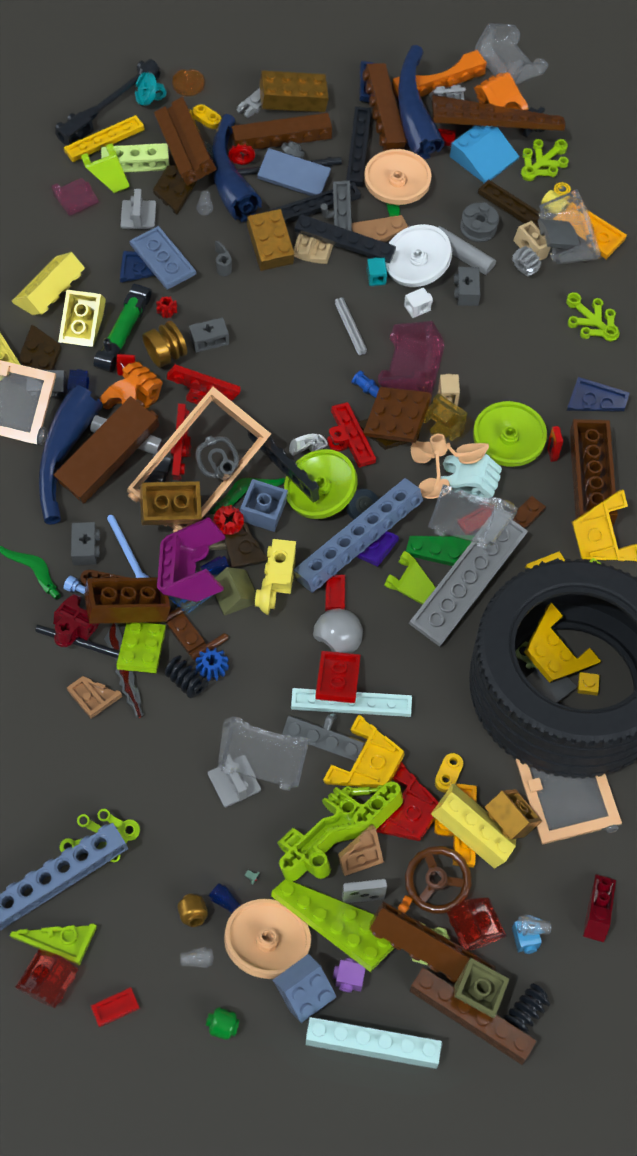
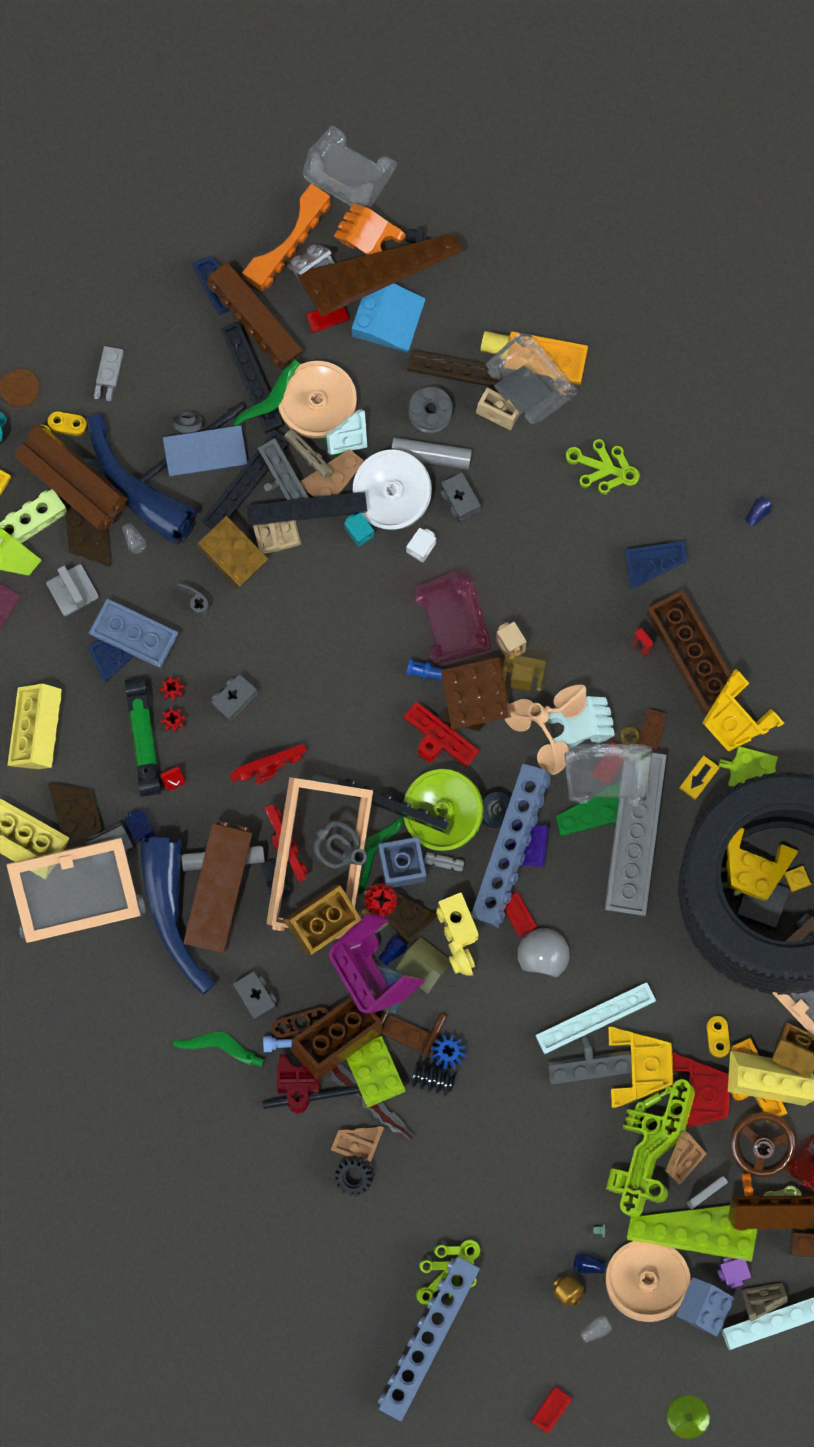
camera: 25 degrees left, 15 degrees up
(47, 978) = (479, 1419): clear red slope -> none
(66, 942) = (475, 1380): lime wing -> none
(81, 318) = (95, 749): light yellow slope -> none
(82, 717) = (362, 1167): none -> black tyre
(126, 548) = (330, 1001): light blue piece -> none
(138, 384) = (200, 805): orange piece -> none
(151, 323) = (167, 720): none -> red gear
(164, 344) = (199, 739): pearl gold wheel -> none
(222, 1023) = (651, 1373): green head -> none
(233, 787) = (534, 1152): light grey bracket -> none
(233, 1096) = (677, 1421): none -> clear neon green dish
(238, 158) = (137, 458): red gear -> none
(261, 754) = (549, 1118): clear windscreen -> none
(275, 132) = (161, 404): reddish brown brick -> none
(293, 91) = (145, 346): pearl gold brick -> none
(298, 524) = (444, 861): none -> light grey axle
(311, 441) = (403, 772): white brick -> none
(338, 677) = (571, 1001): red plate -> none
(350, 326) = (368, 608): light grey axle -> none
(362, 1014) = (763, 1299): none -> dark tan wing
(368, 159) = (274, 398): none -> green piece
(371, 210) = (314, 459): none -> dark tan pin
(408, 206) = (348, 434): none -> light aqua wing
(413, 582) = (585, 862): lime flag -> none
(416, 121) = (302, 322): dark blue brick -> none
(512, 431) = (593, 652): lime dish -> none
(526, 261) = (505, 436): light grey gear -> none
(530, 171) = (454, 293): lime plant -> none
(562, 188) = (492, 320): yellow tile -> none

